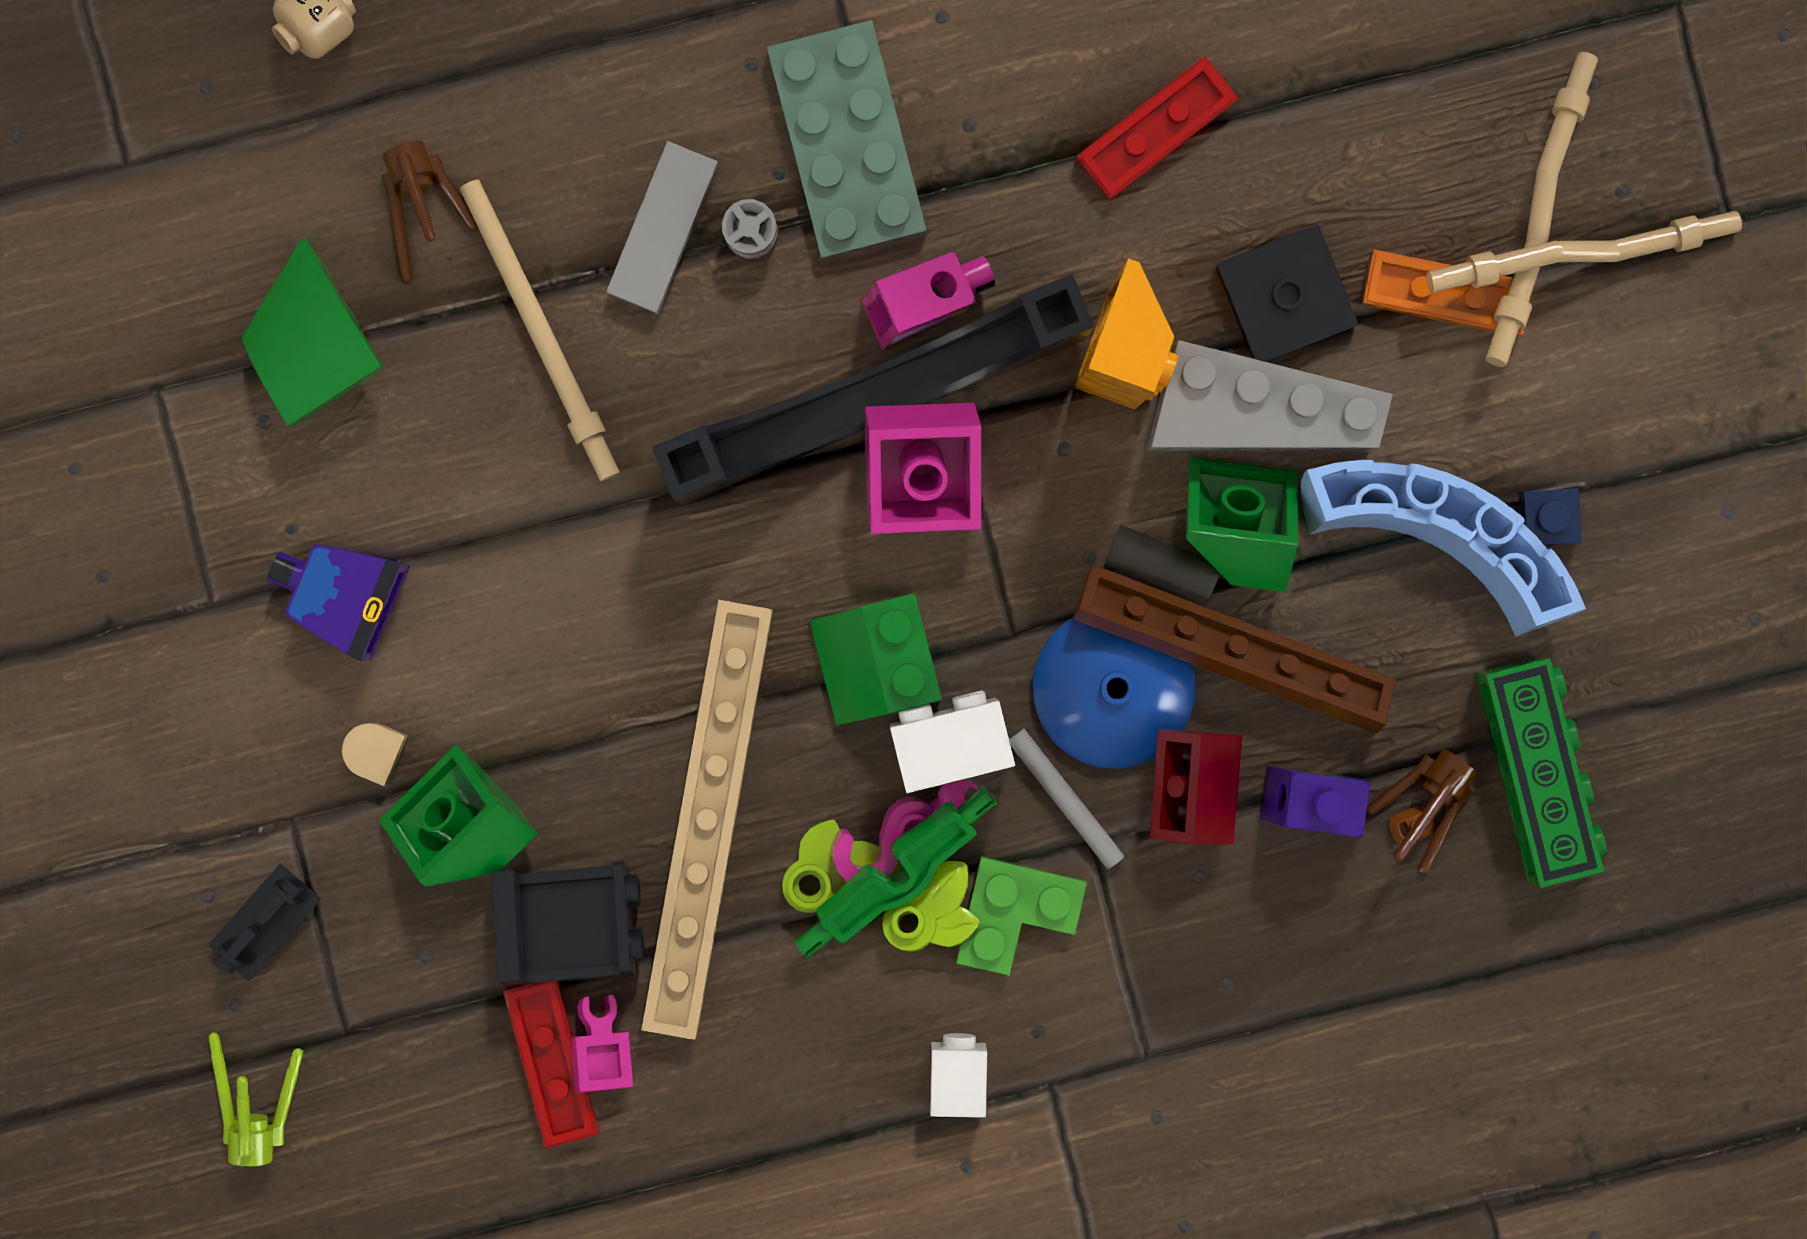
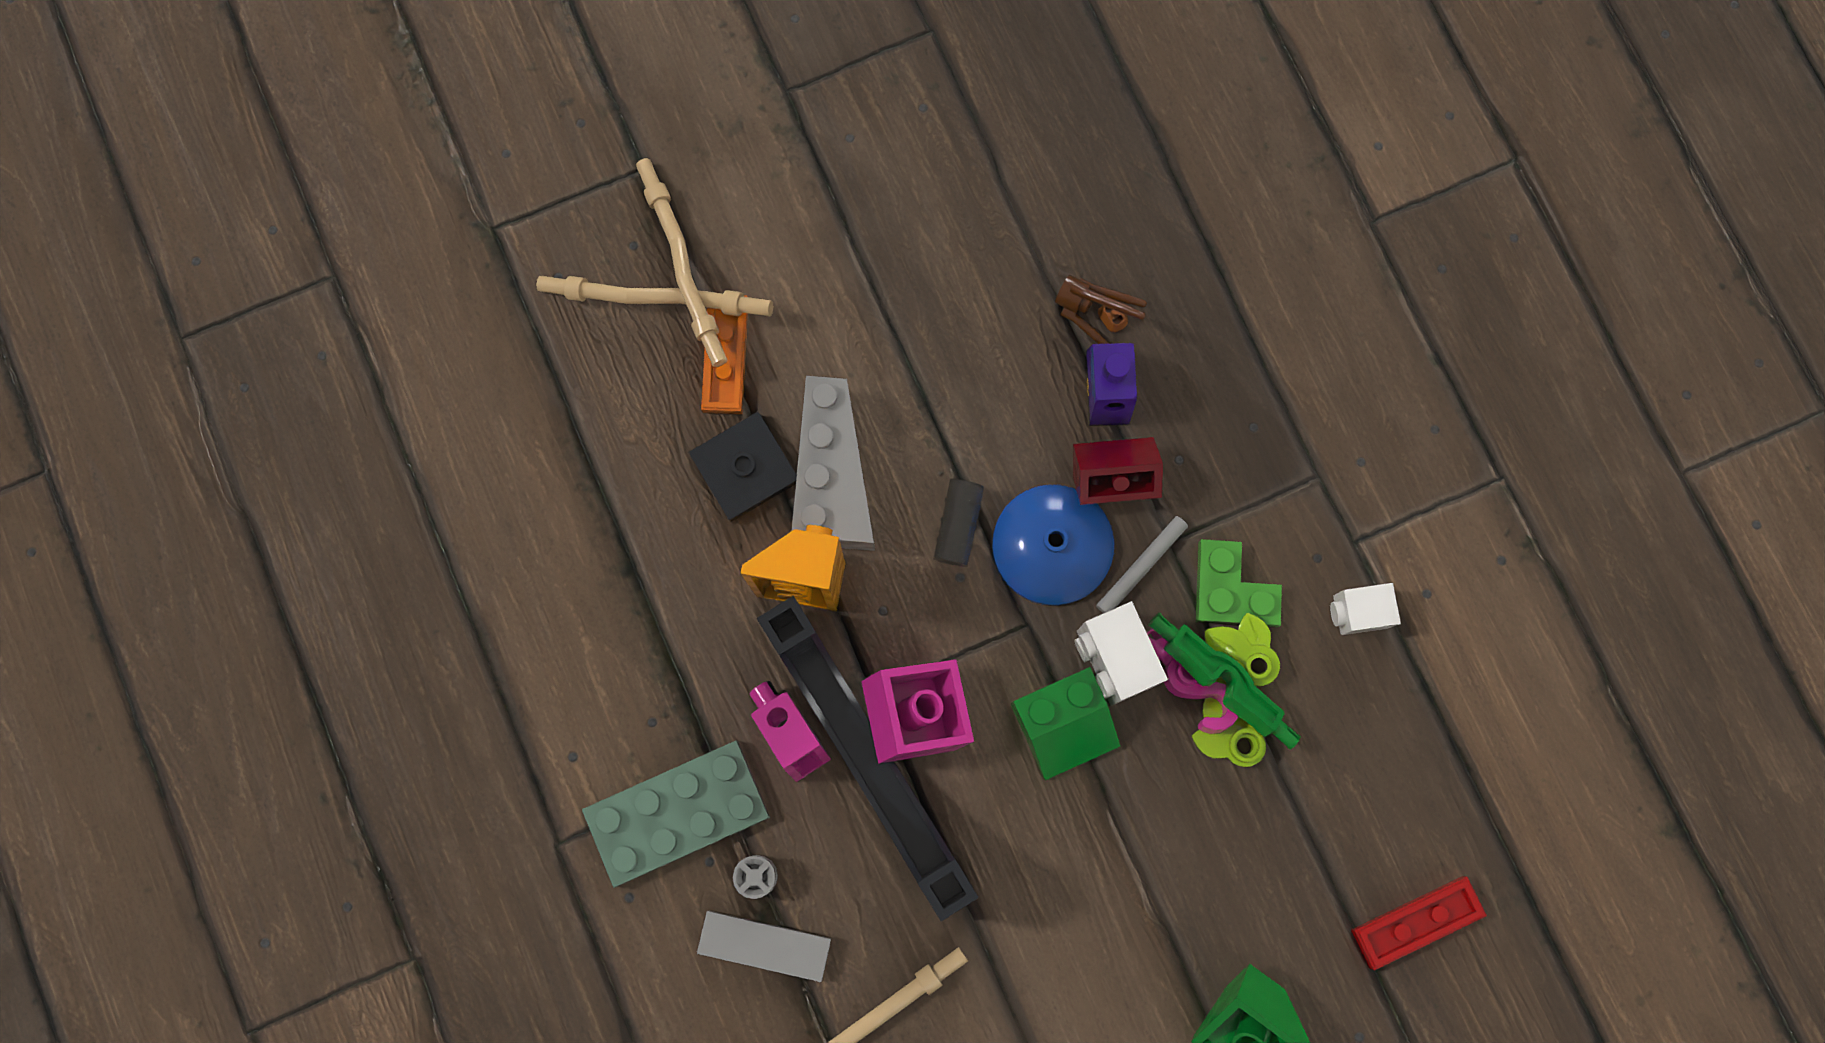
camera: 100 degrees left, 10 degrees down
(566, 924) = (1314, 929): black panel -> none
(601, 1057) = (1407, 882): dark pink plate -> none
(707, 819) = (1211, 832): tan plate -> none
(1156, 128) = (634, 581): red tile -> none
(1234, 649) = (1010, 461): reddish brown plate -> none
(1244, 521) = (915, 468): green slope -> none
(1454, 517) = (887, 318): light blue brick -> none
(1541, 772) = (1058, 231): green brick -> none
(1552, 515) = (875, 256): dark blue plate -> none

